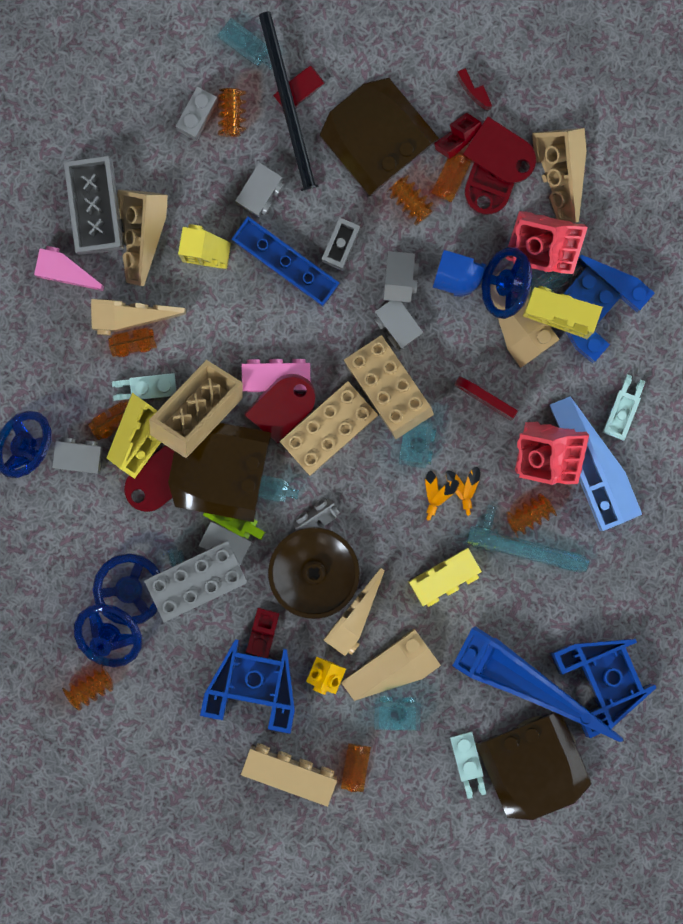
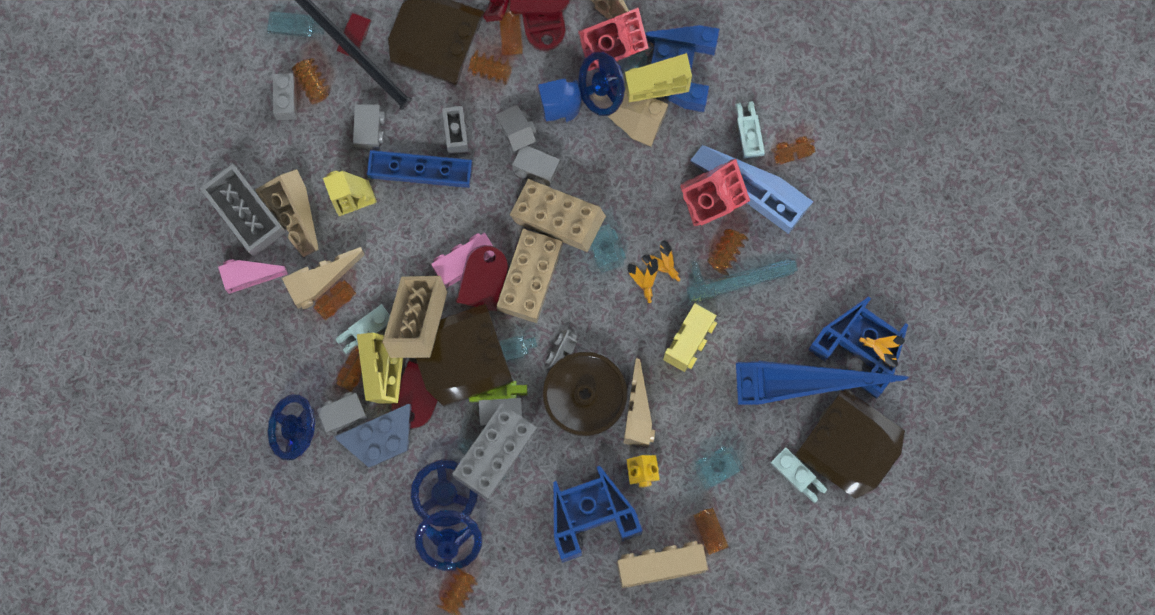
camera: 30 degrees left, 10 degrees down
(99, 500) = (380, 437): none -> sand blue wing
(262, 633) = (571, 465): dark red slope -> none
(396, 666) = (696, 428): tan wedge -> none
(486, 398) = (639, 181): dark red tile -> none
(616, 694) = (880, 347): none -> light orange piece
(664, 452) = (801, 147): none -> clear orange hinge

